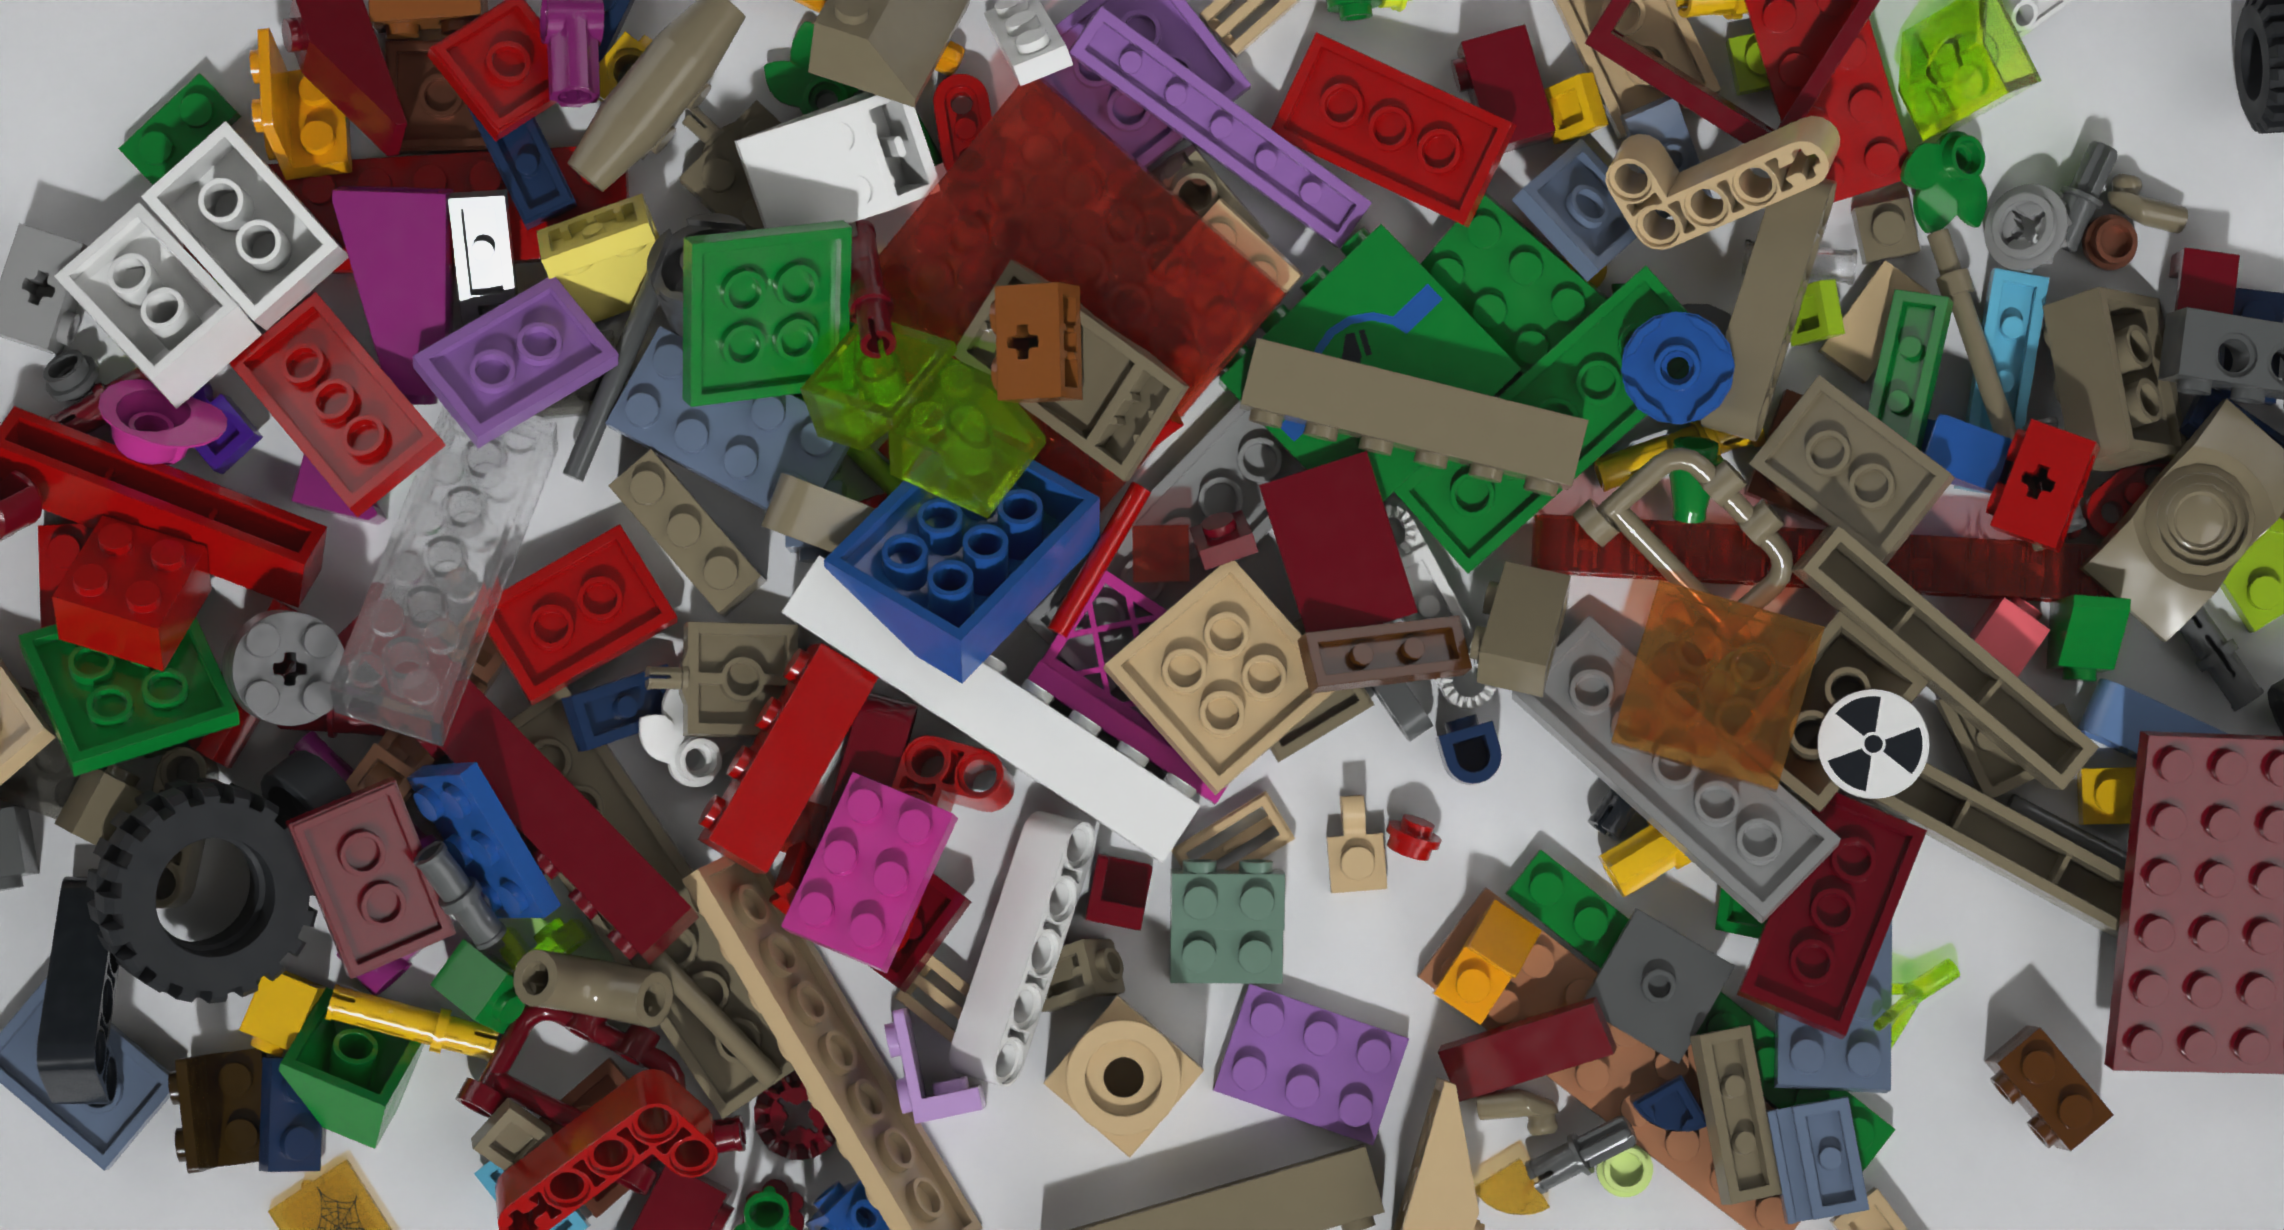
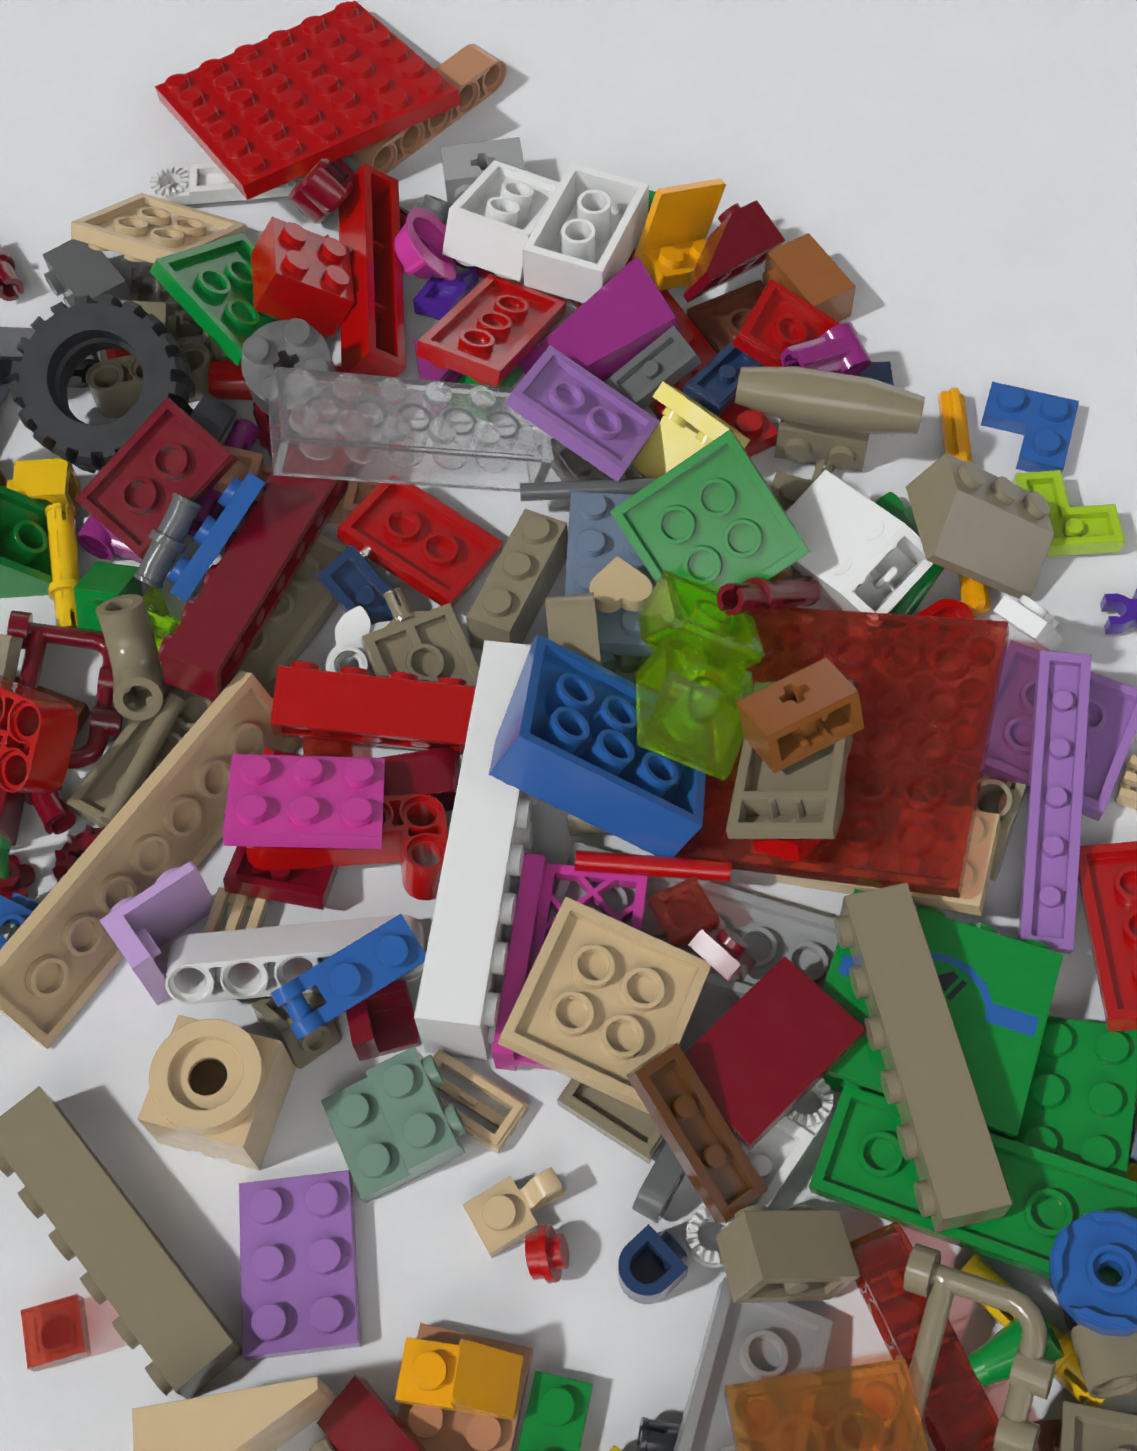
camera: 70 degrees right, 25 degrees down
(775, 437) = (620, 587): none -> tan tile
(1078, 904) = (351, 975): none -> blue plate

